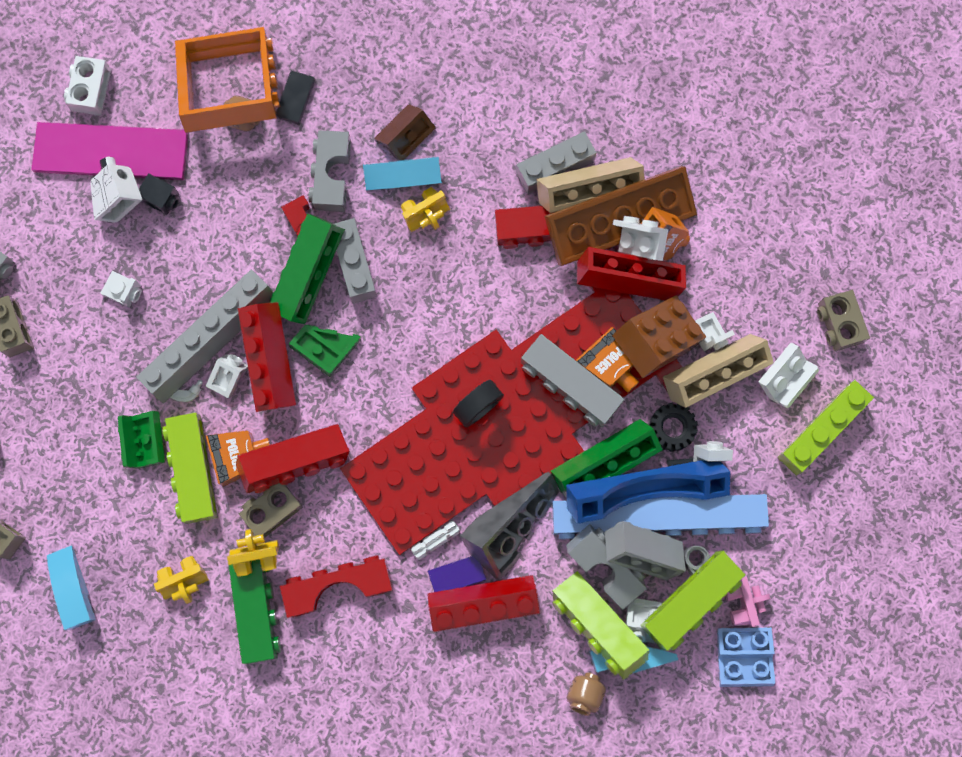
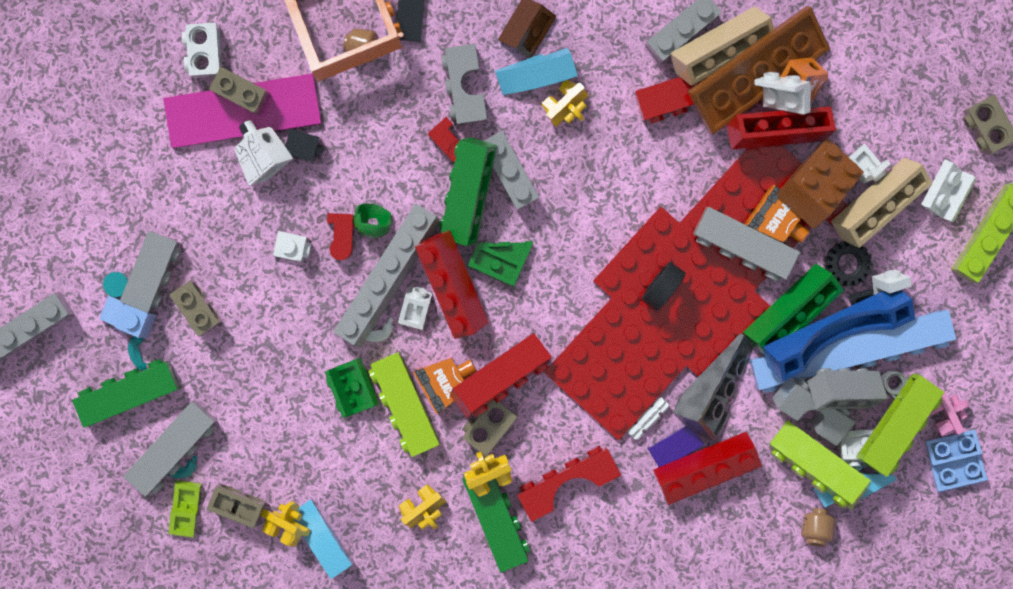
camera: 15 degrees left, 10 degrees up
(36, 559) = (285, 520): none -> yellow hips
(109, 127) = (239, 90): none -> dark tan brick
(174, 288) = (342, 244): none -> red leg
(199, 273) = (364, 213): none -> green hair

